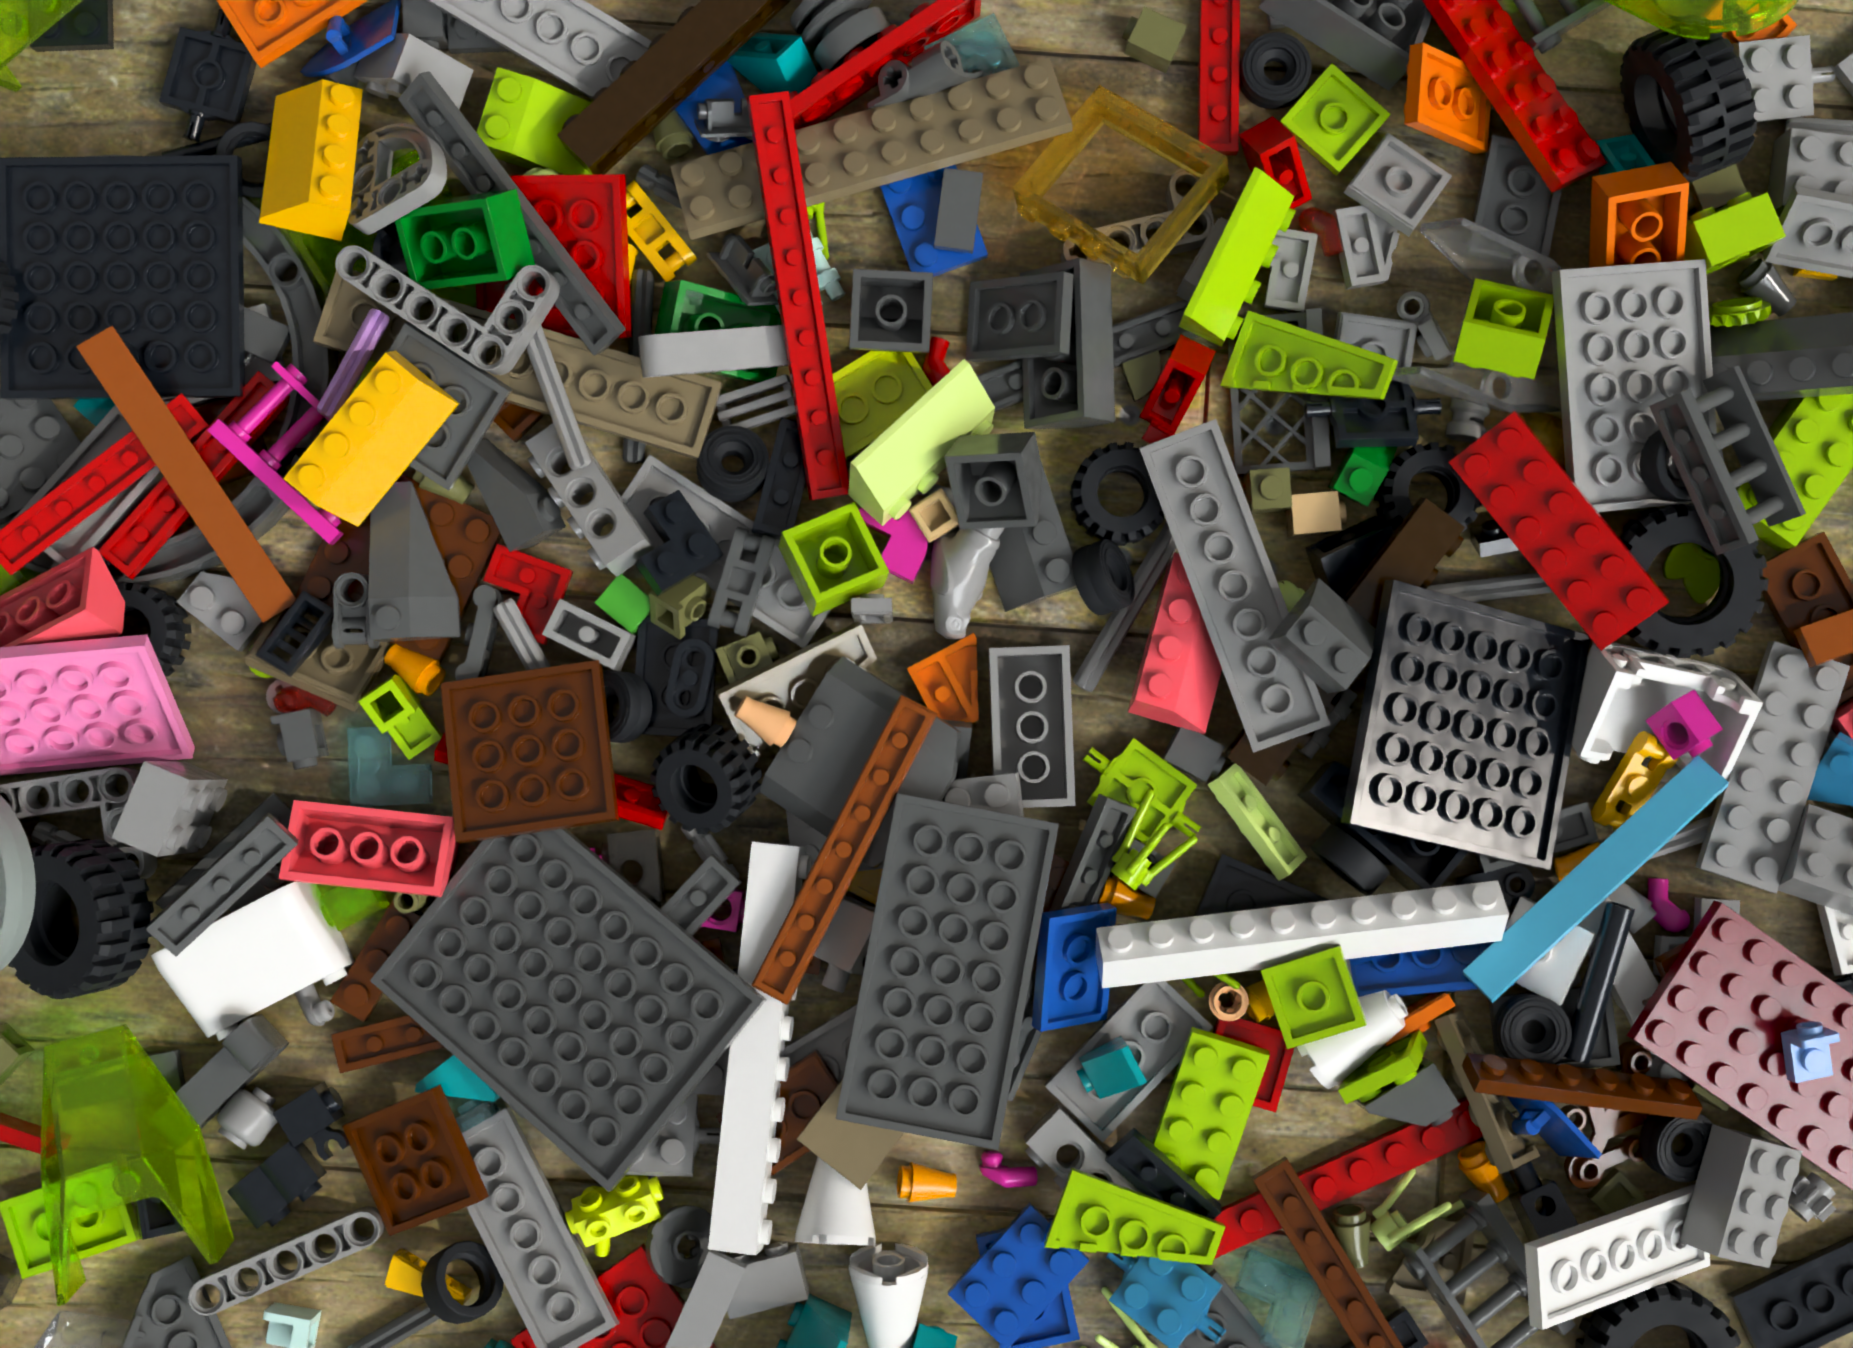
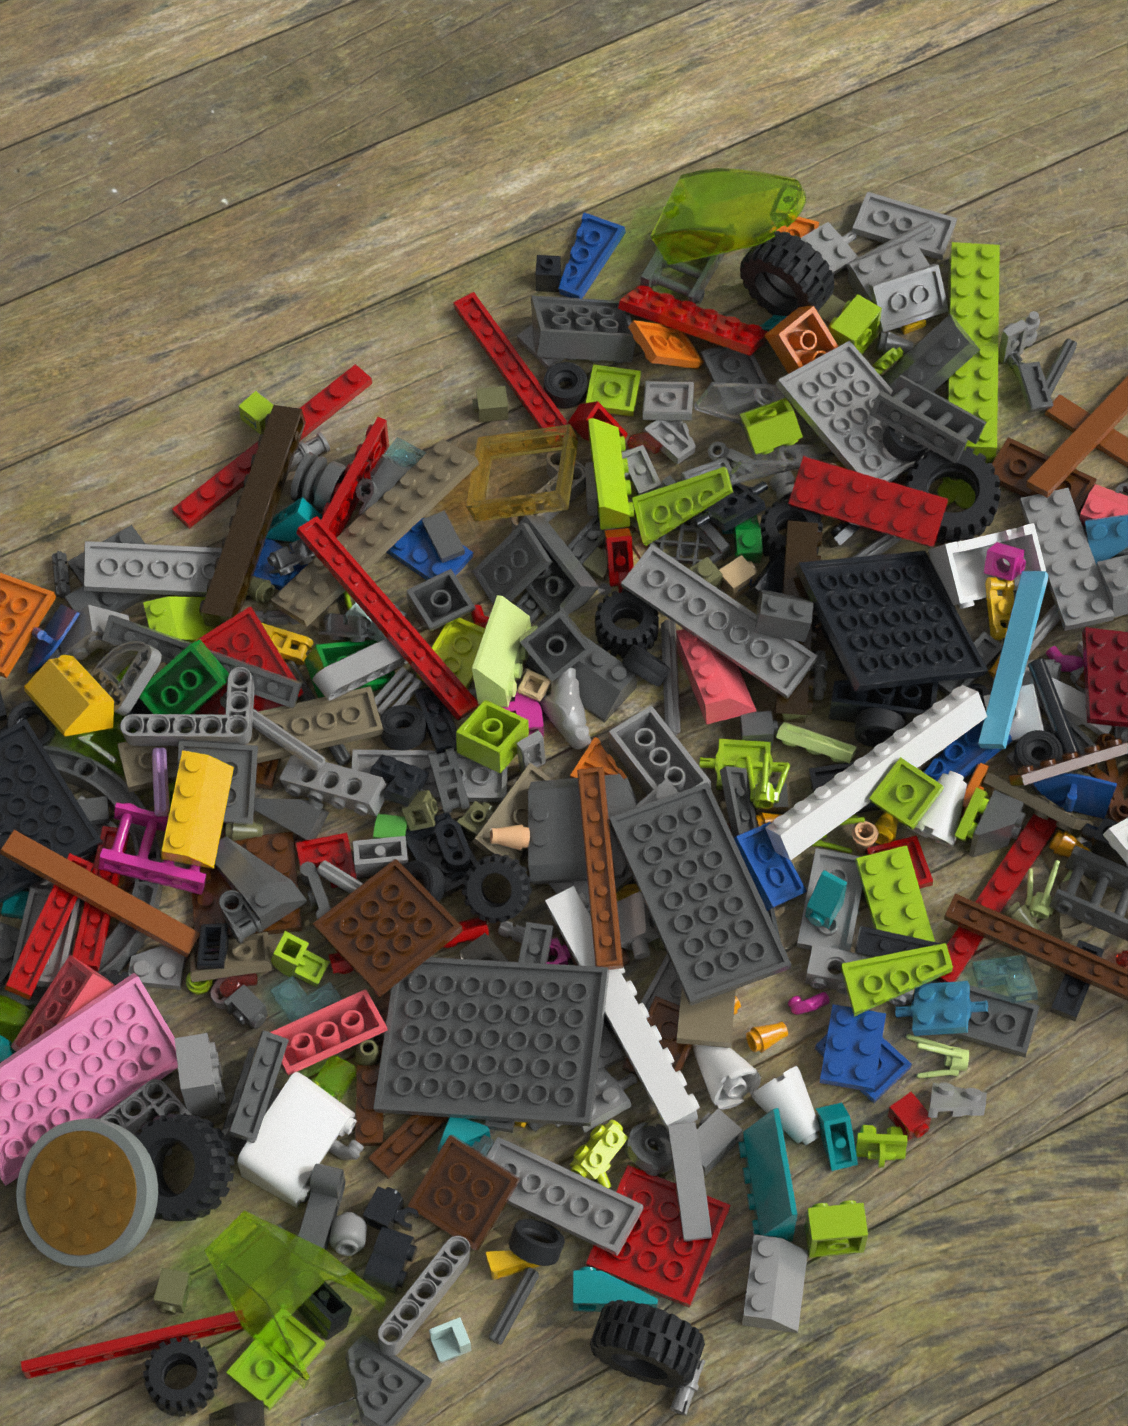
camera: 30 degrees left, 25 degrees down
(417, 670) = (297, 929): light orange cone -> none

